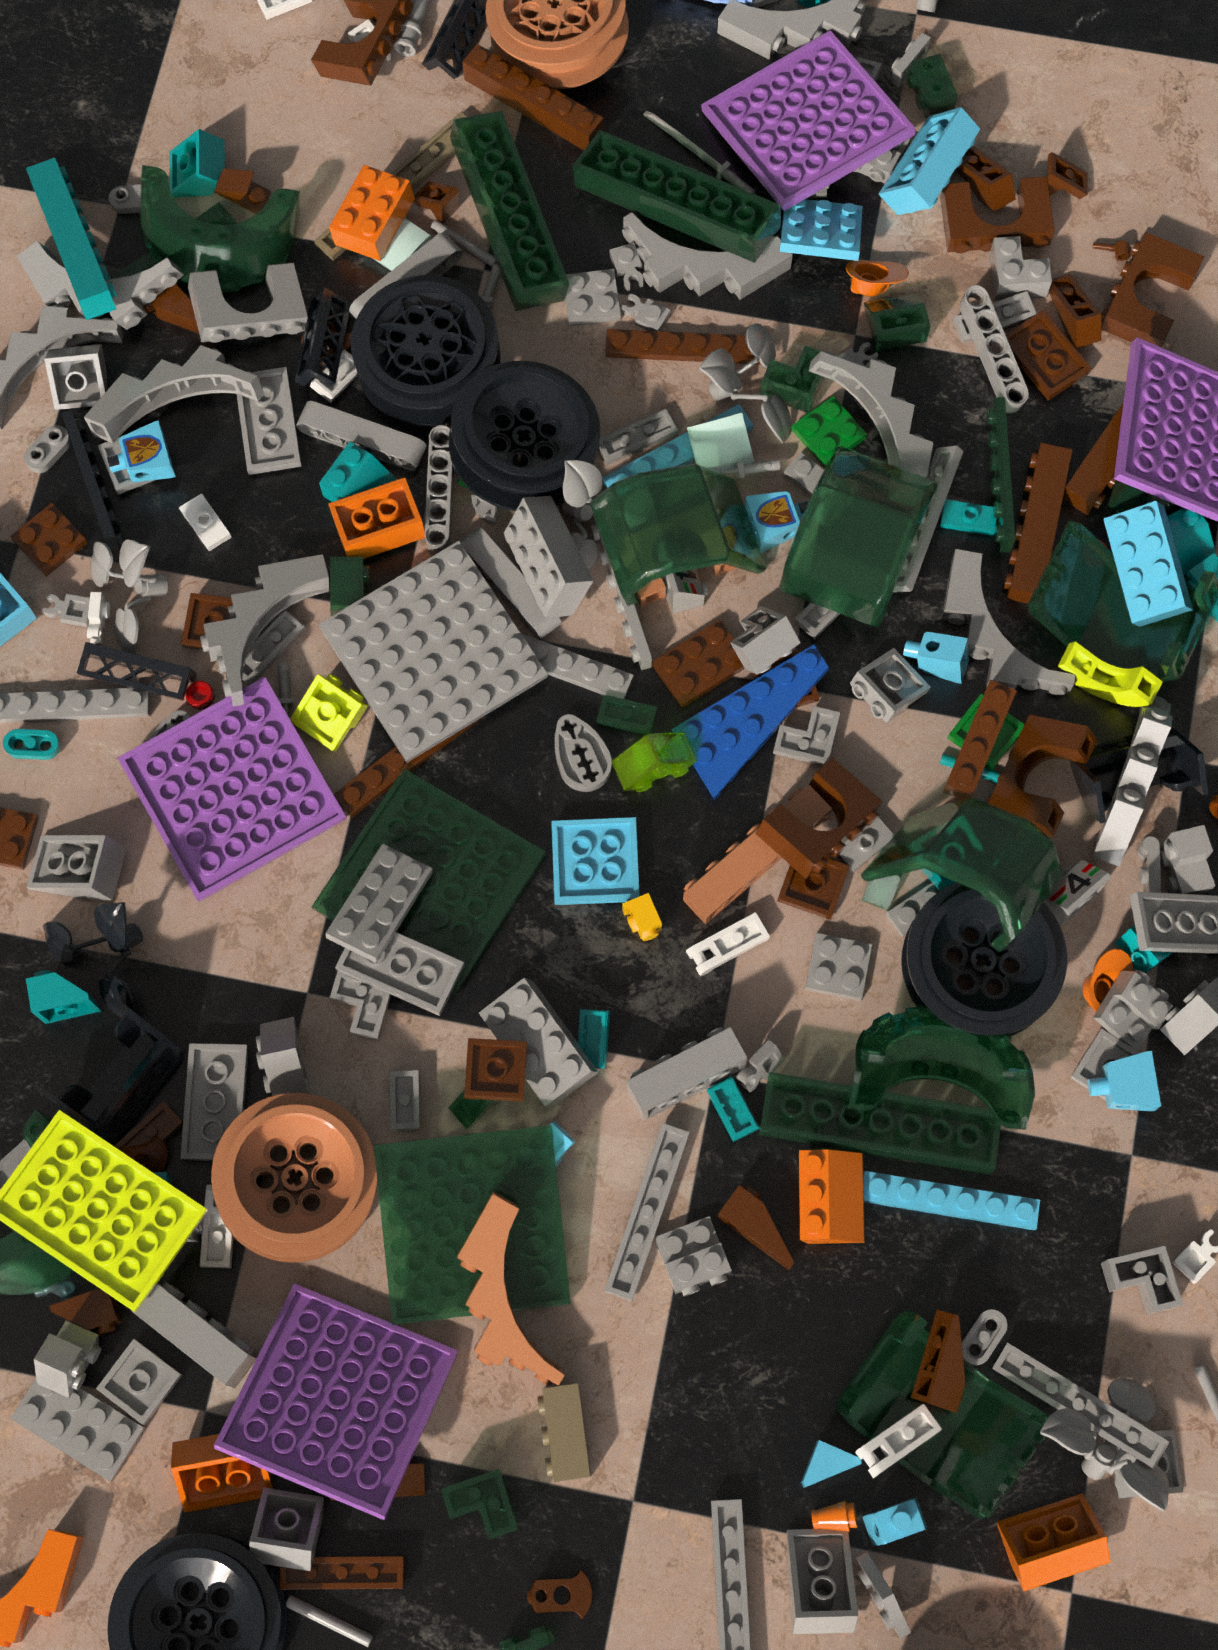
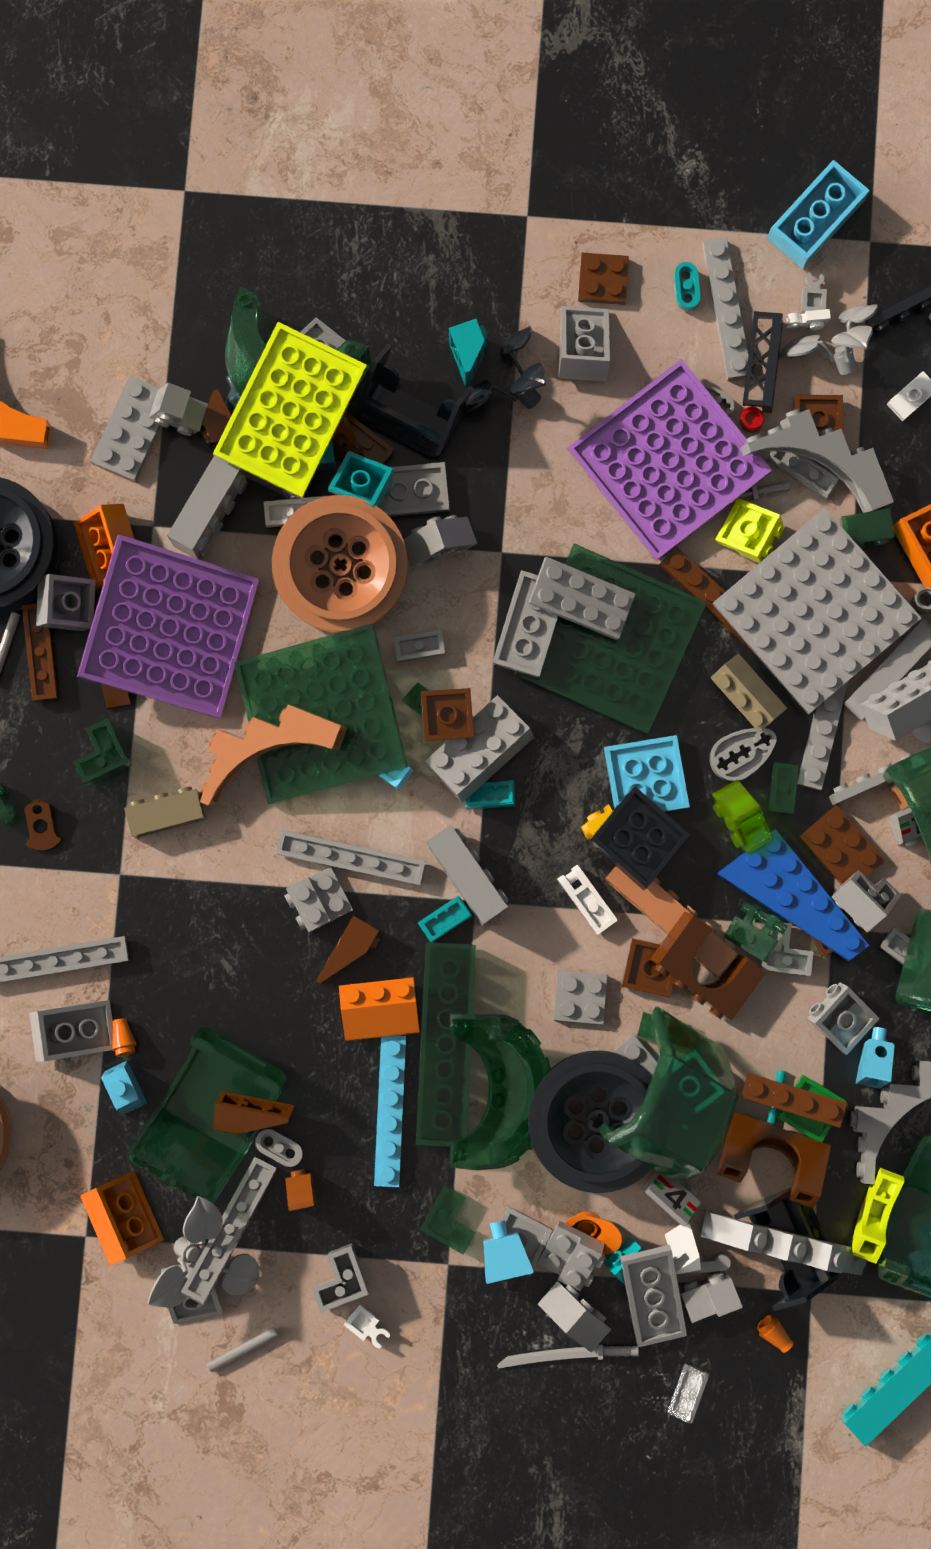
camera: 80 degrees right, 10 degrees up
(48, 539) = (877, 265): reddish brown plate -> none
(139, 1382) = (168, 470): light grey plate -> none
(195, 1137) = (362, 479): none -> teal slope
(370, 1004) = (494, 605): light grey plate -> none
(514, 735) = (748, 692): none -> dark tan brick
(665, 873) = (638, 838): none -> black plate
(764, 1060) = (485, 940): light grey plate -> none
(793, 767) = (751, 938): none -> clear green plate
(827, 1462) = (164, 1027): medium azure slope -> none
(865, 845) = (691, 1011): light grey plate -> none
(882, 1596) = (62, 1080): light grey plate -> none
(899, 1440) = (187, 1084): white plate -> none
(1037, 1314) = (300, 1190): none -> dark orange slope
(1086, 1154) = (442, 1224): none -> clear green plate
(1136, 879) = (683, 1249): none -> white slope

